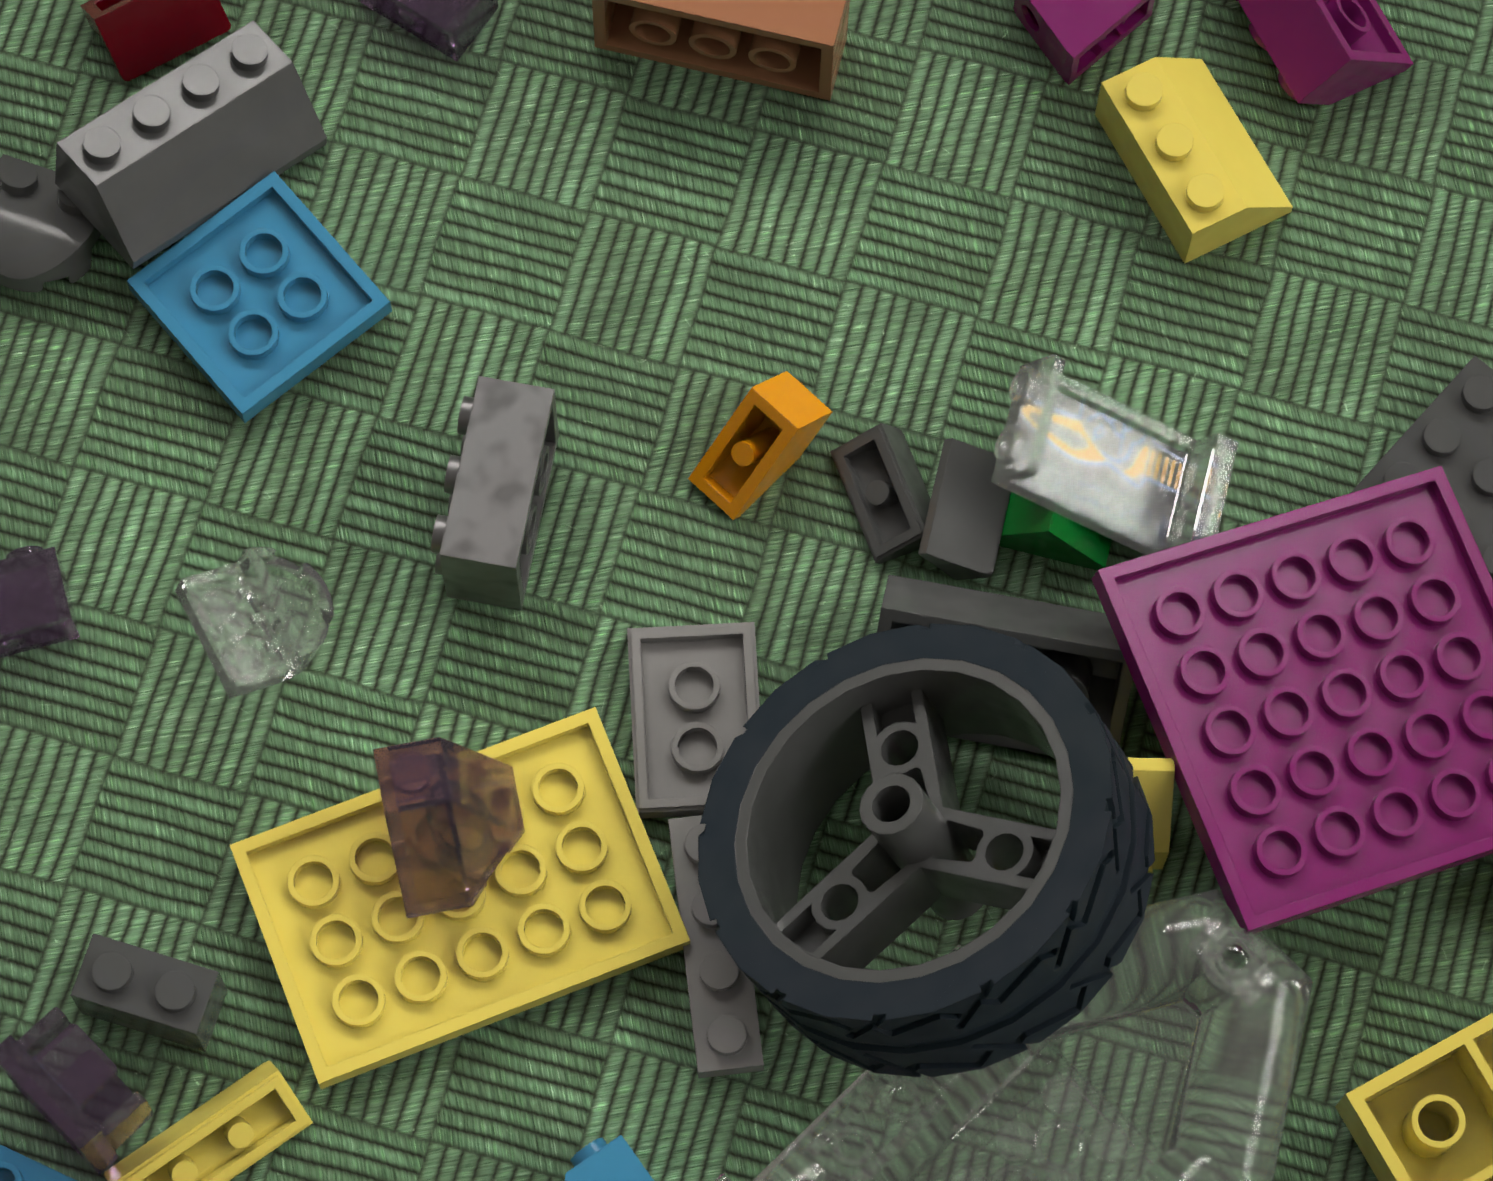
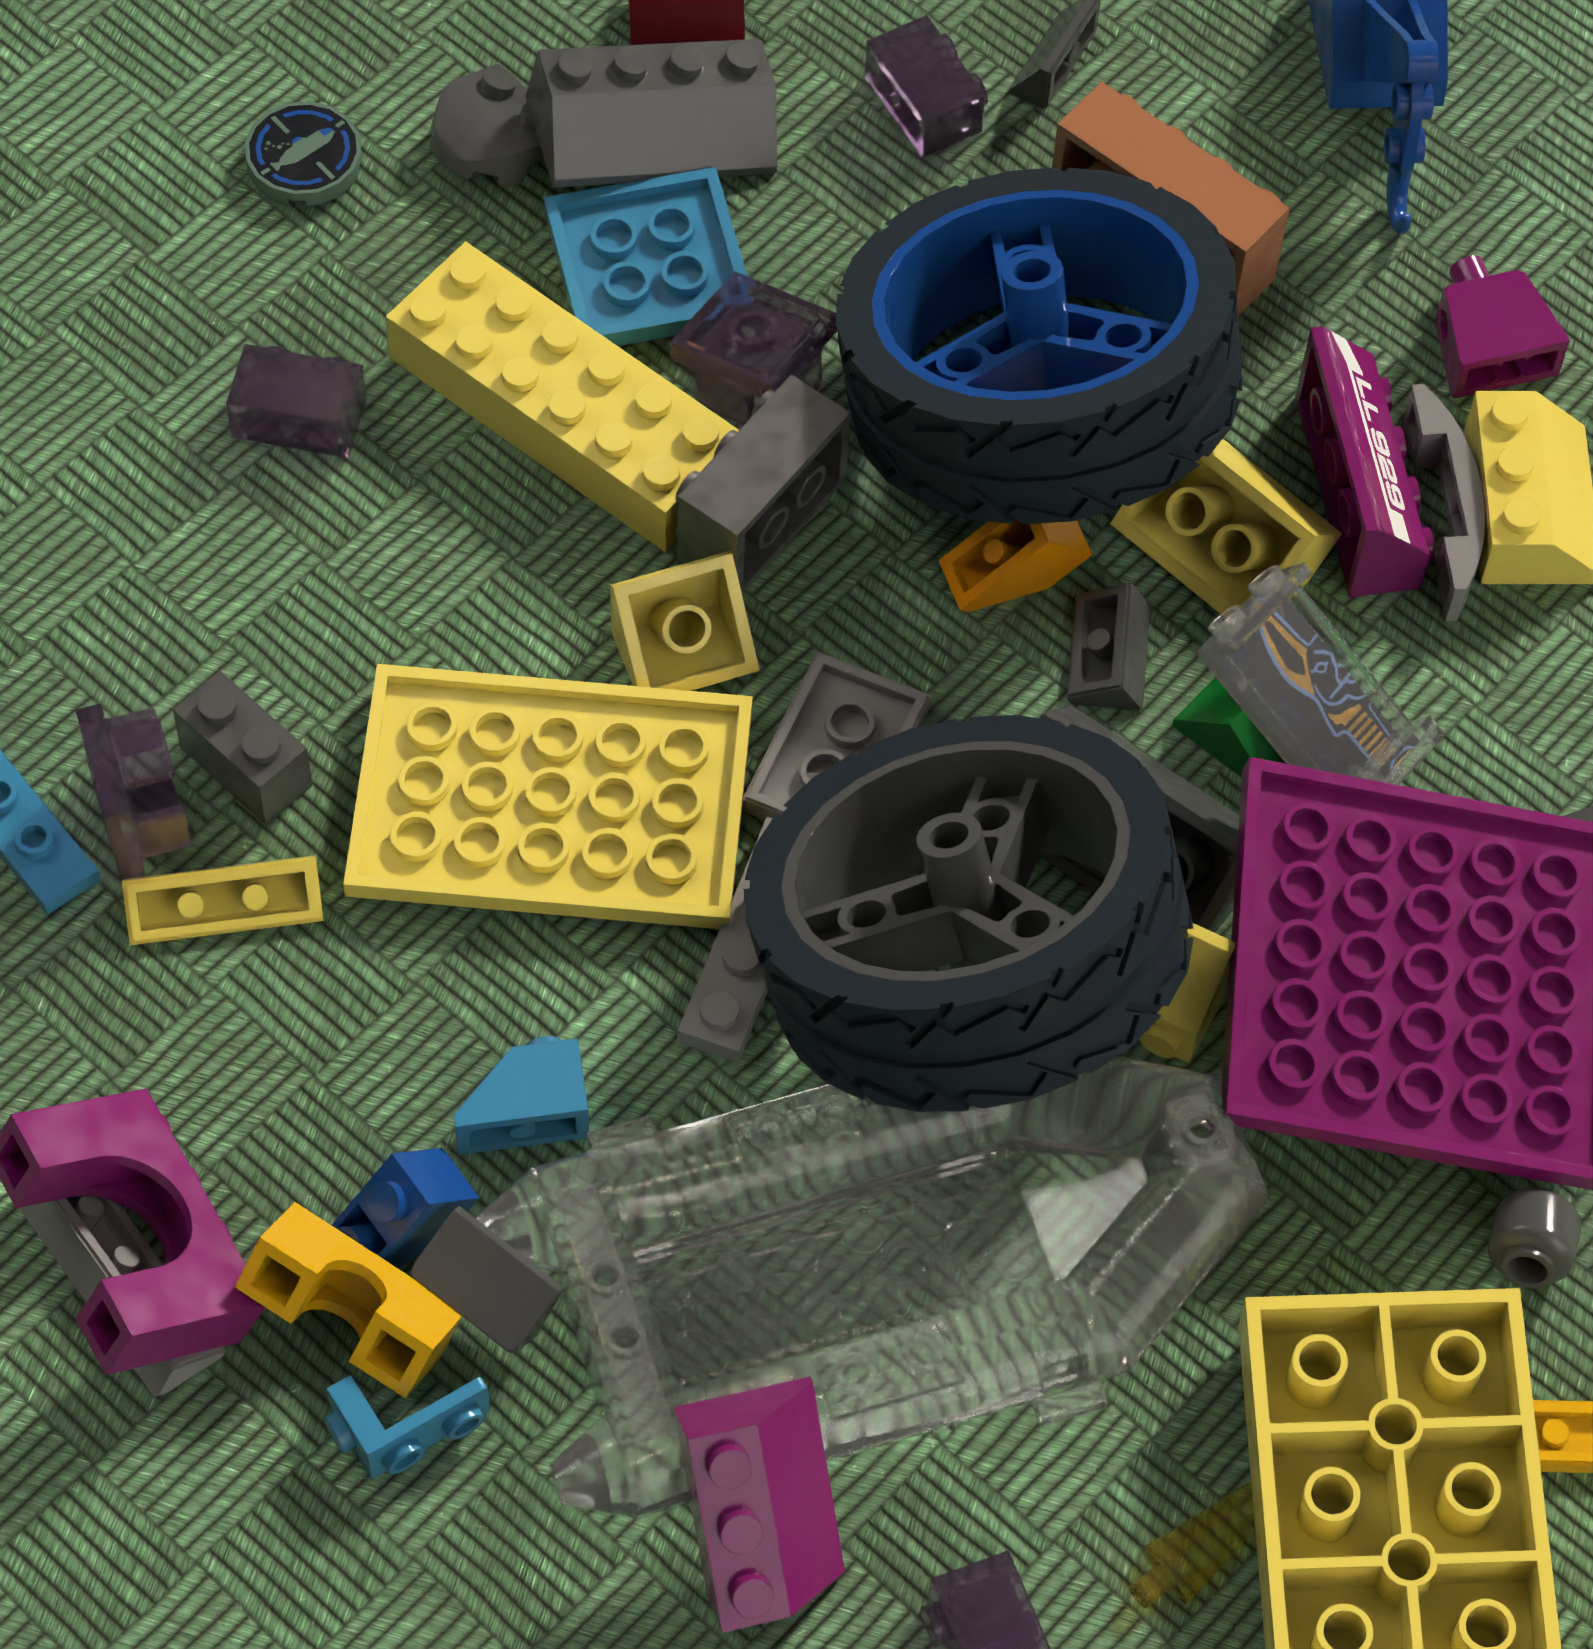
camera: 25 degrees right, 10 degrees down
(253, 479) = (555, 389): none -> light yellow brick
(258, 618) = (504, 503): clear slope -> none
(414, 349) = (750, 343): none -> panel
(446, 820) = (565, 709): slope -> none
(496, 669) = (683, 625): none -> light yellow slope
(618, 125) = (1052, 400): none -> wheel
(934, 322) = (1226, 528): none -> light yellow slope
(964, 513) = (1164, 688): dark grey slope -> none
(1030, 205) = (1361, 467): none -> magenta slope
(1081, 139) = (1440, 443): none -> light grey slope

